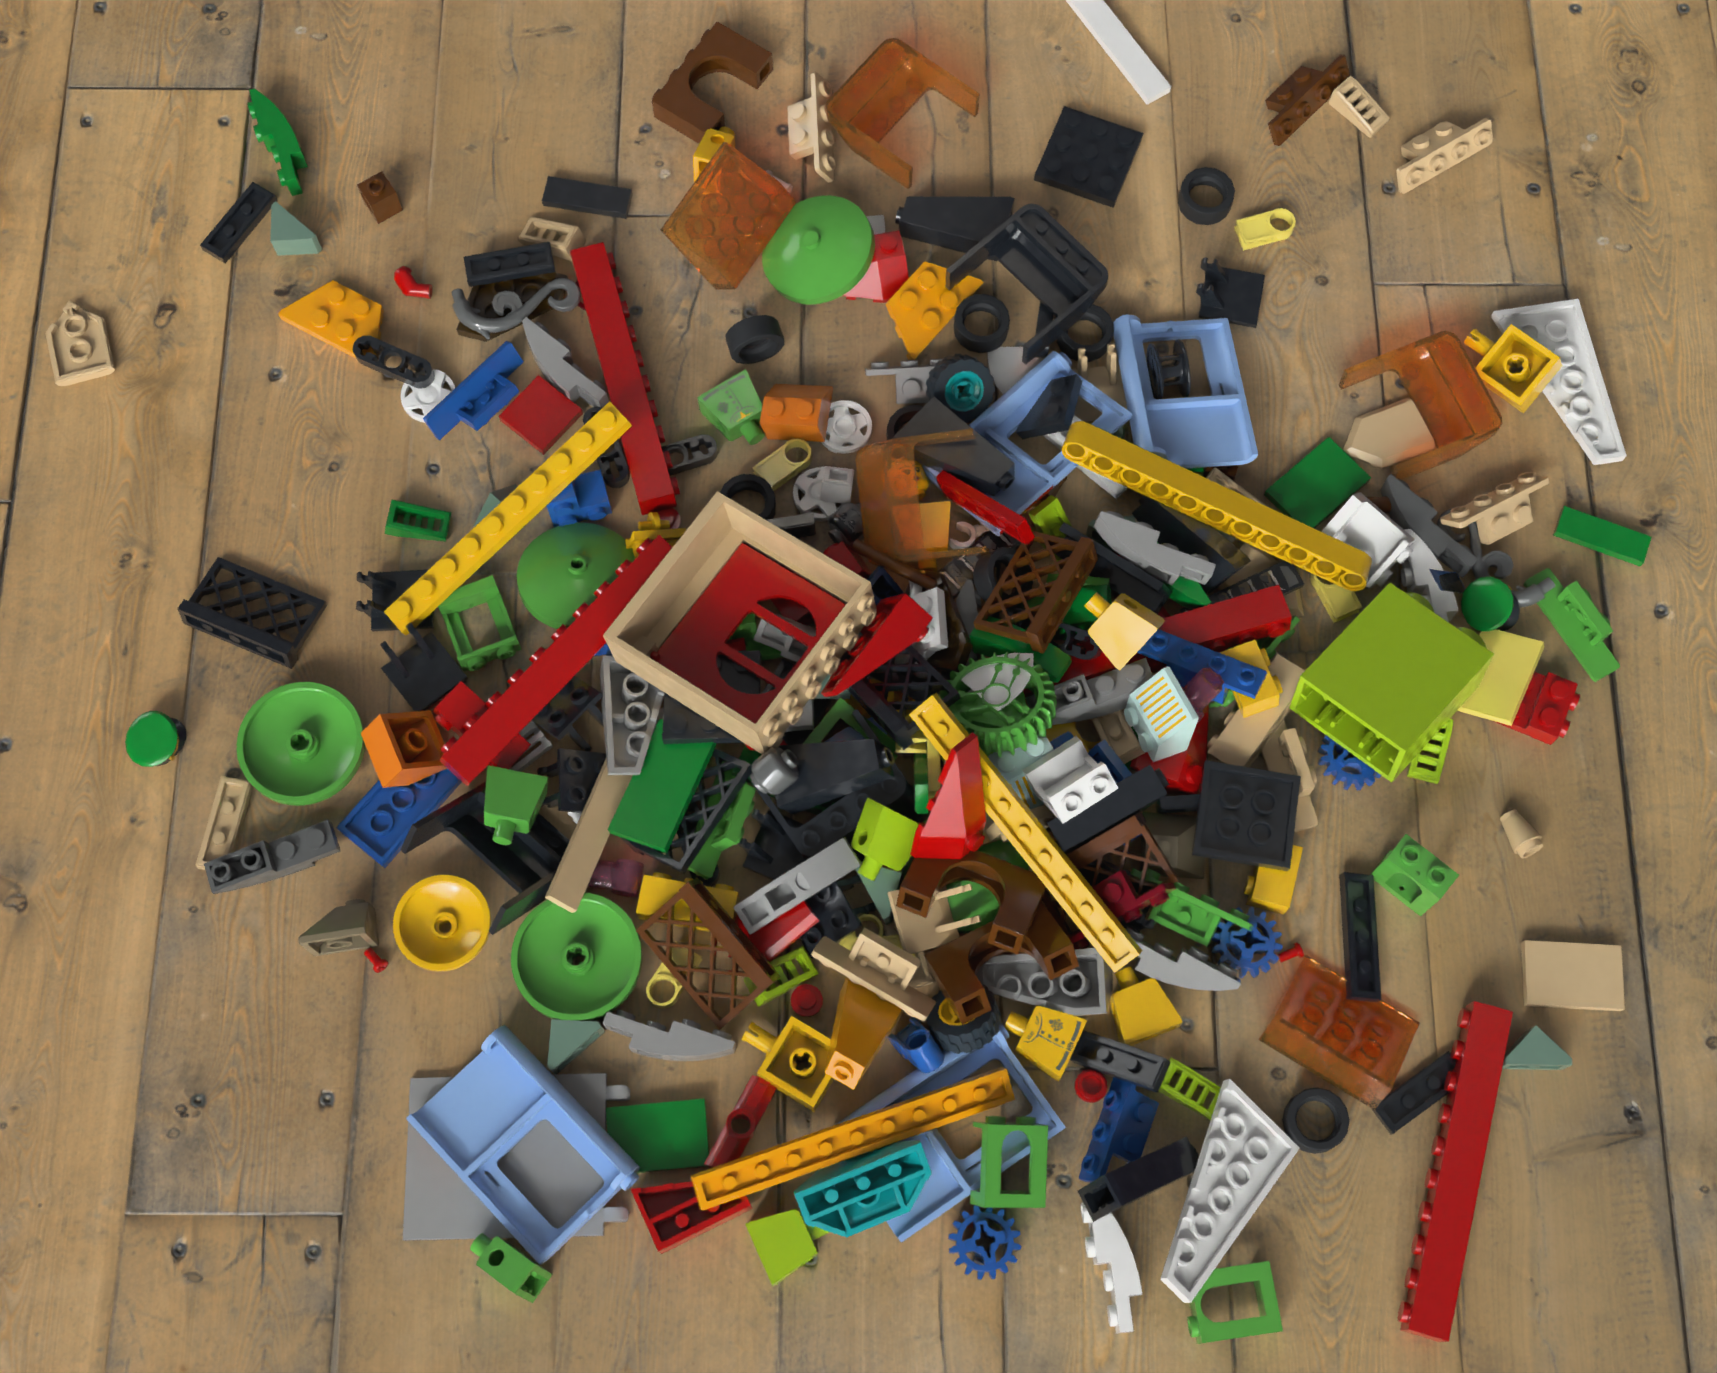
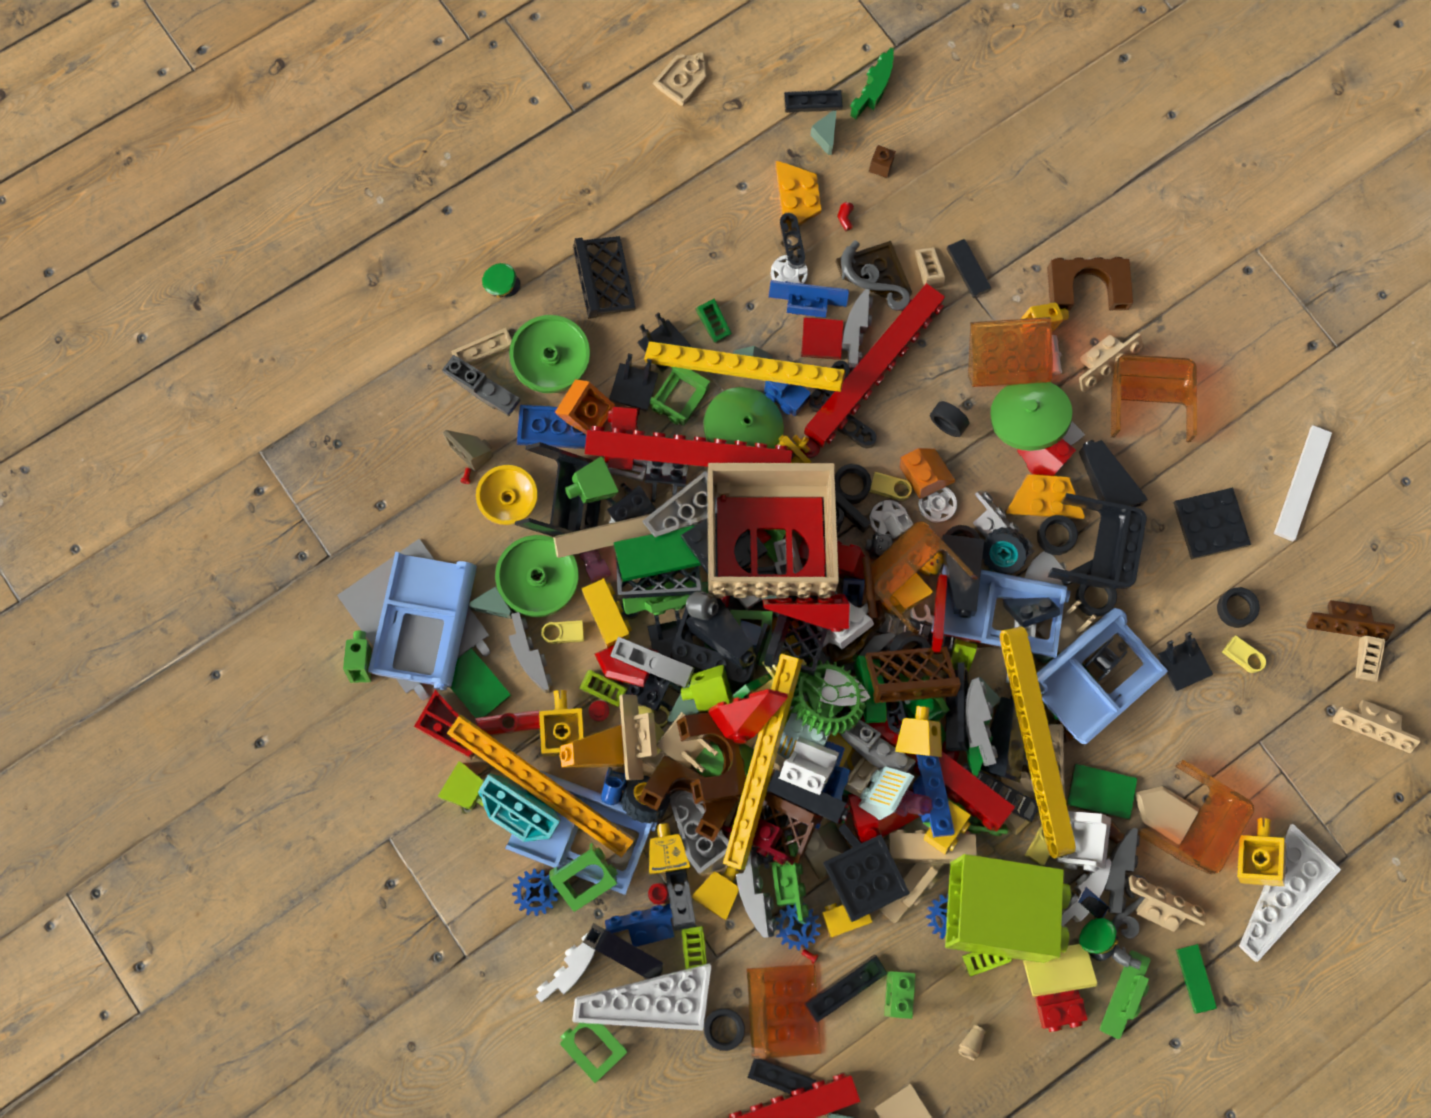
camera: 50 degrees right, 5 degrees up
(509, 264) = (894, 257): black tile -> none
(729, 936) = (601, 645): reddish brown fence -> none
(734, 408) = (902, 437): bright green torso -> none

